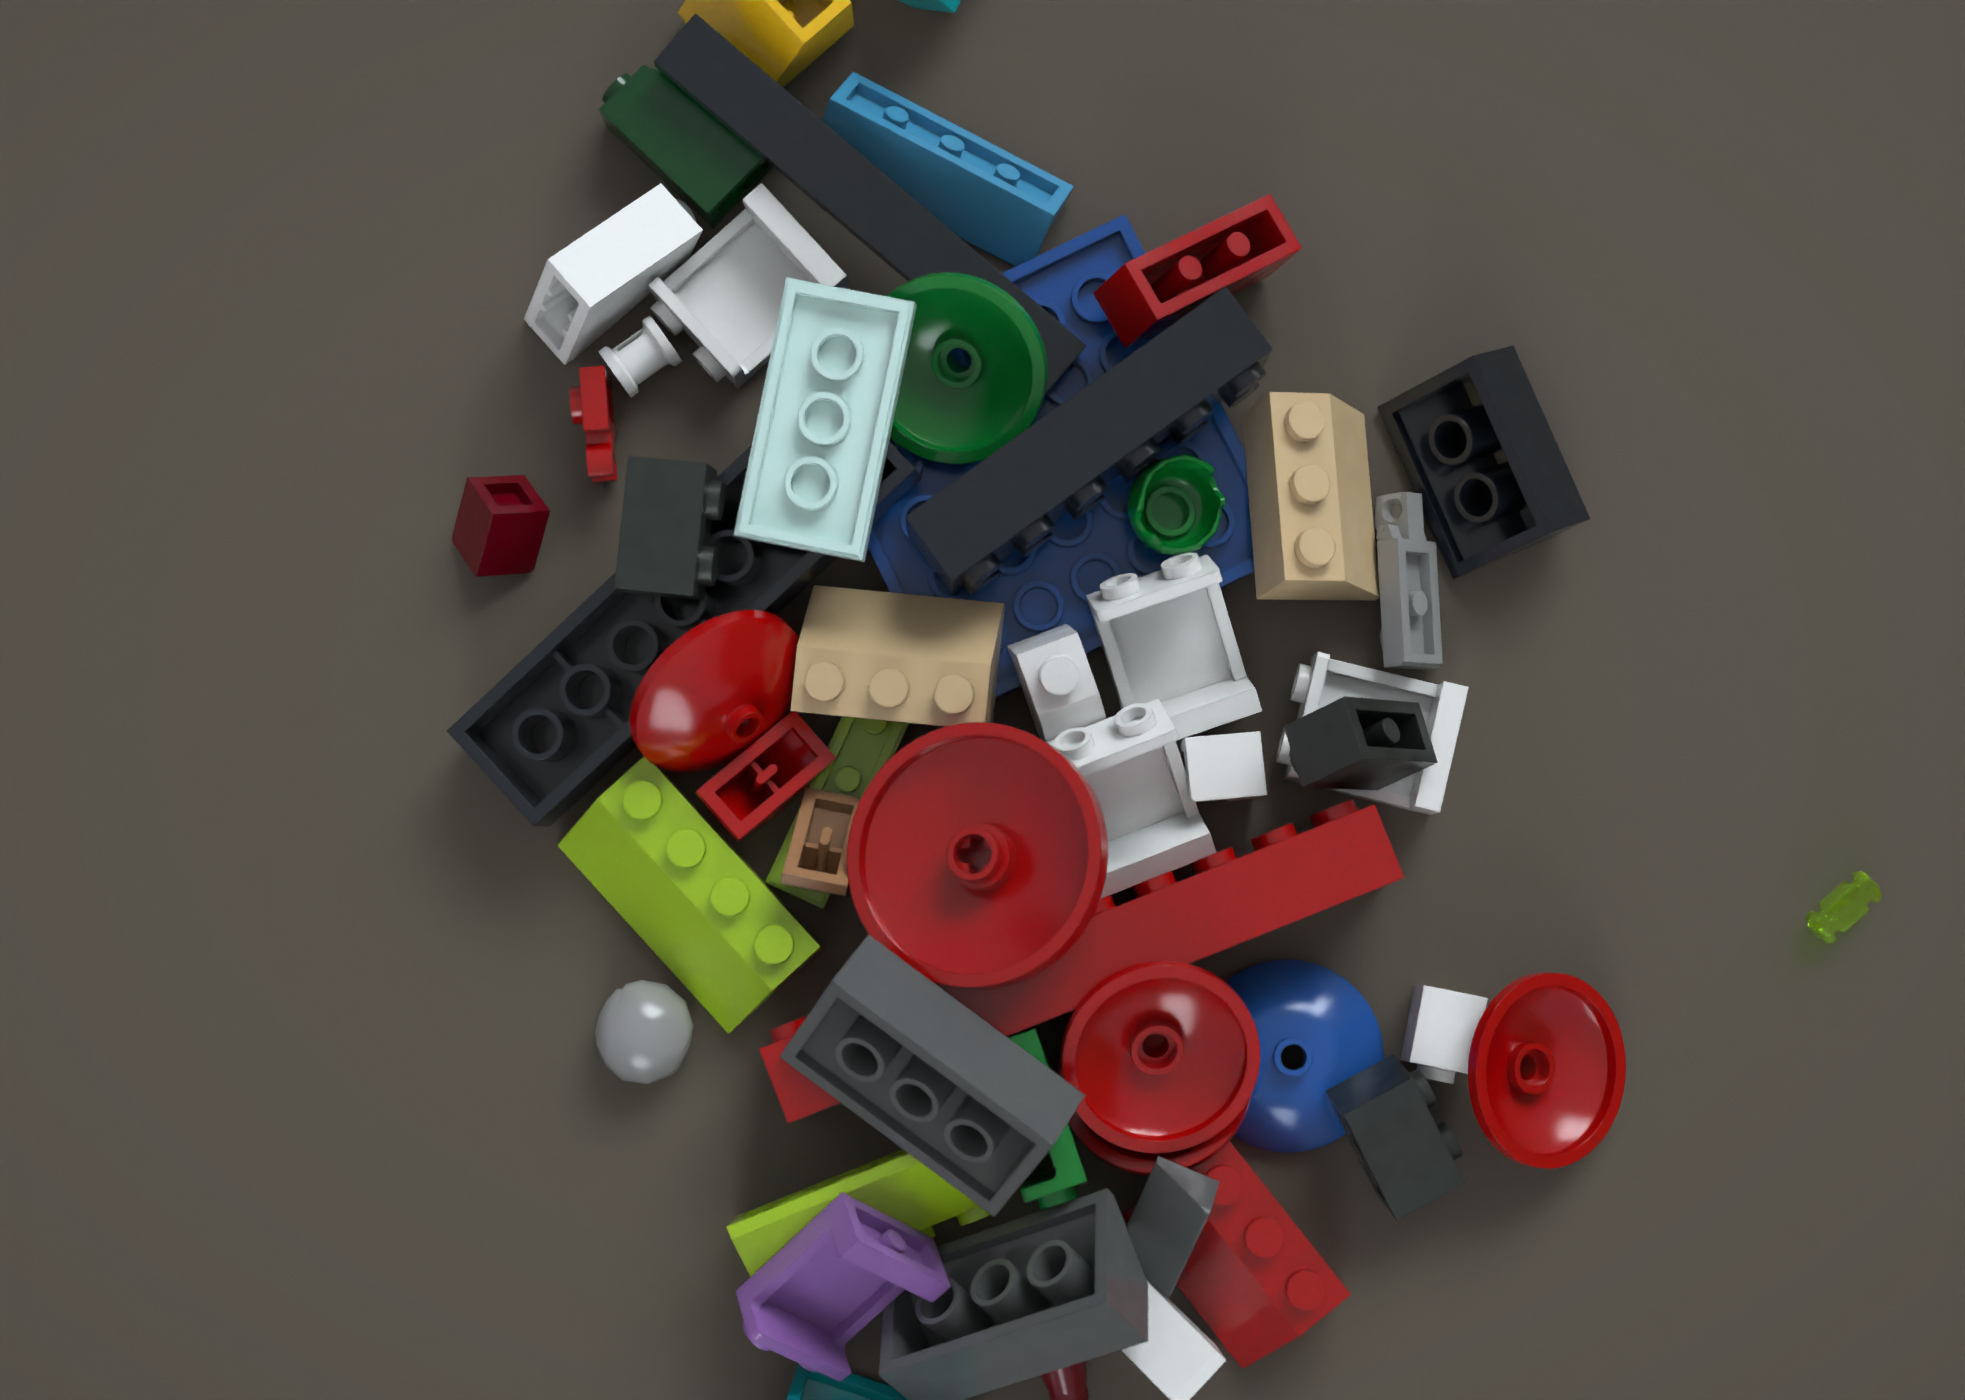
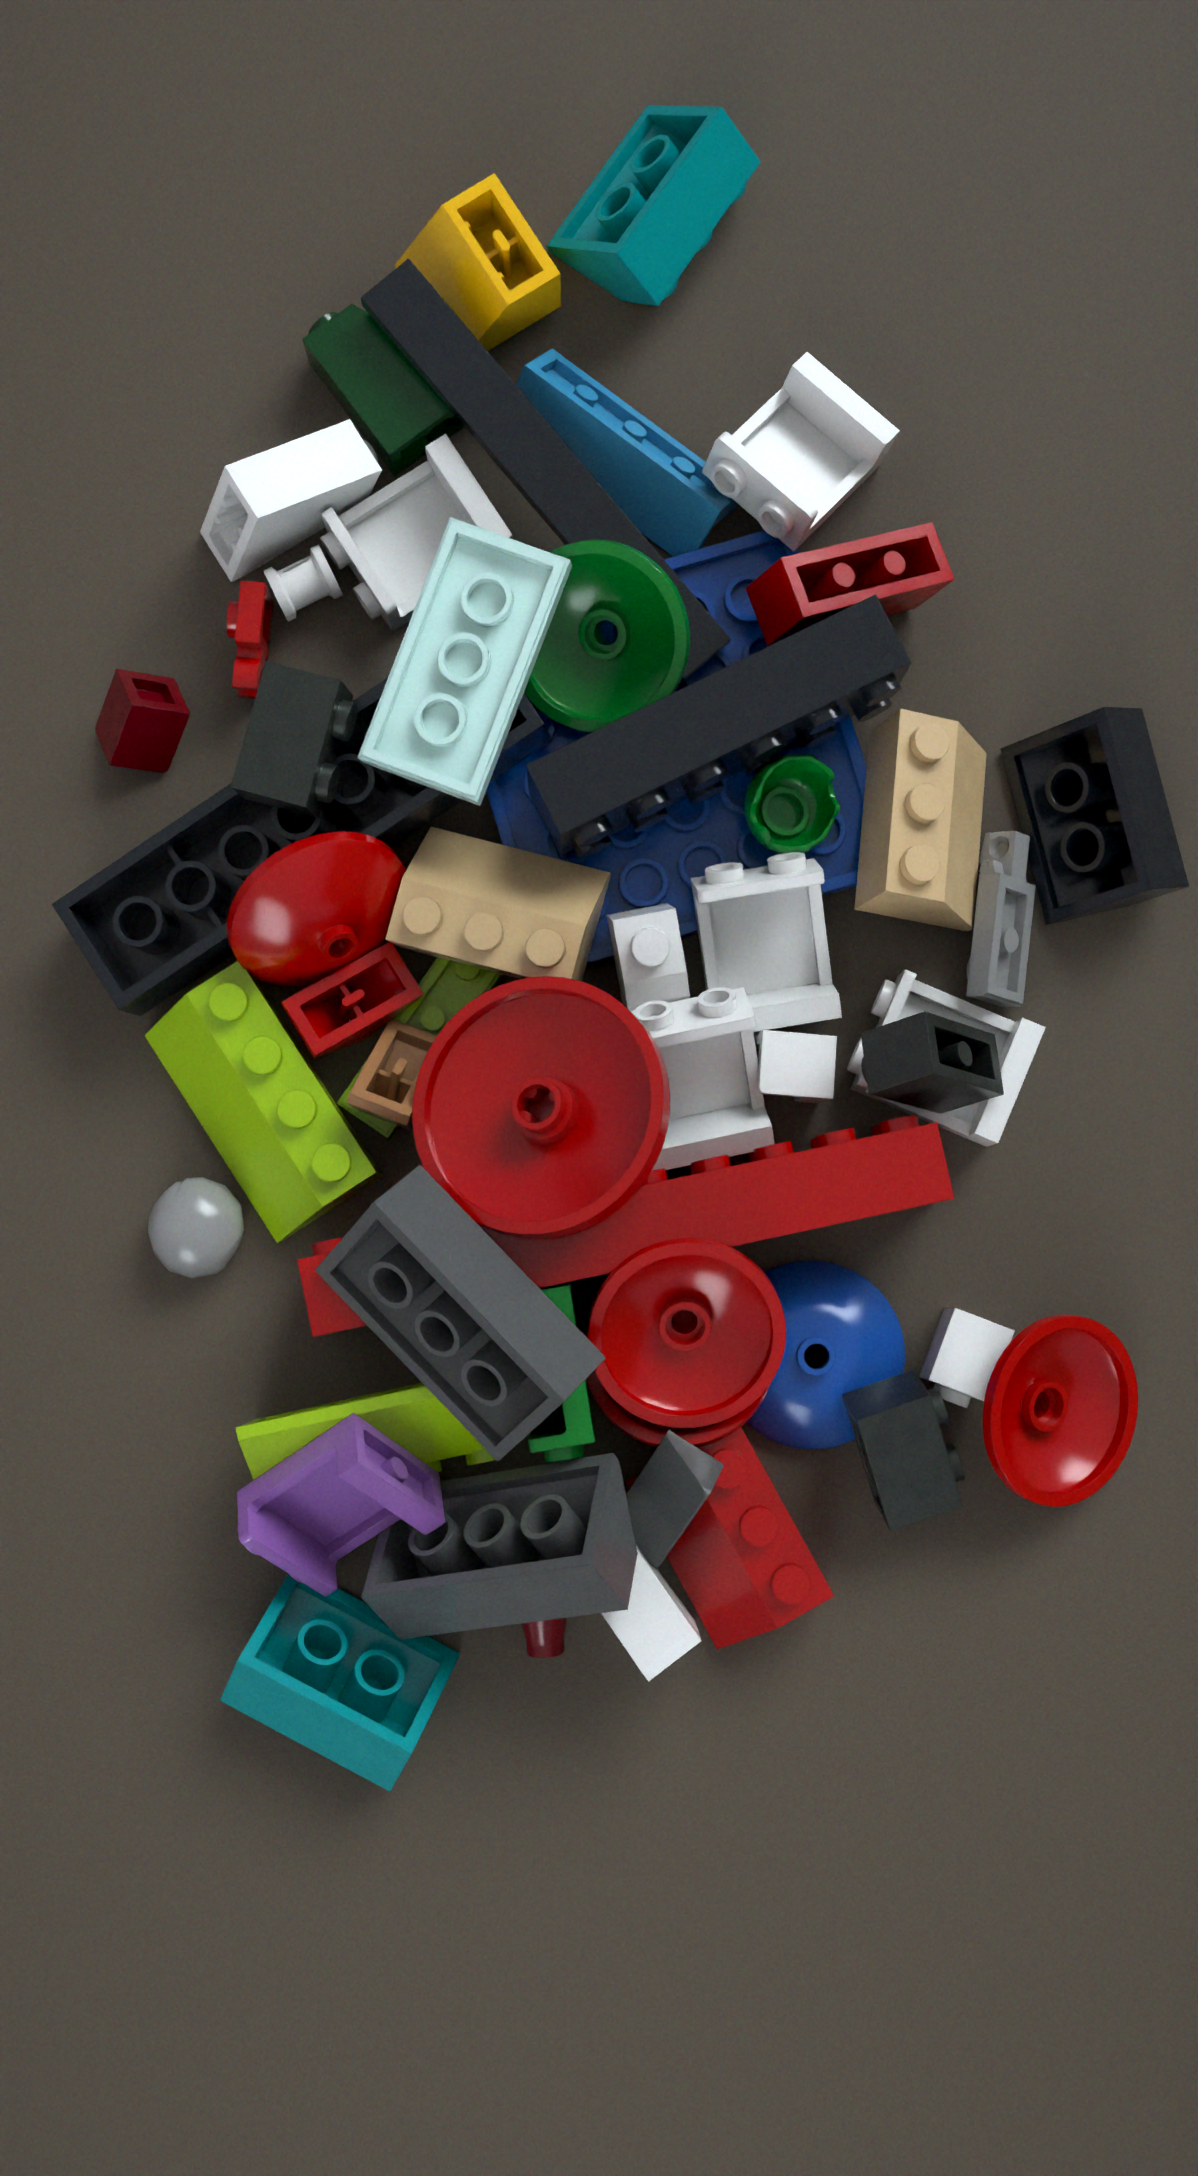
camera: 10 degrees right, 0 degrees up
(1124, 141) = (801, 453): none -> white panel

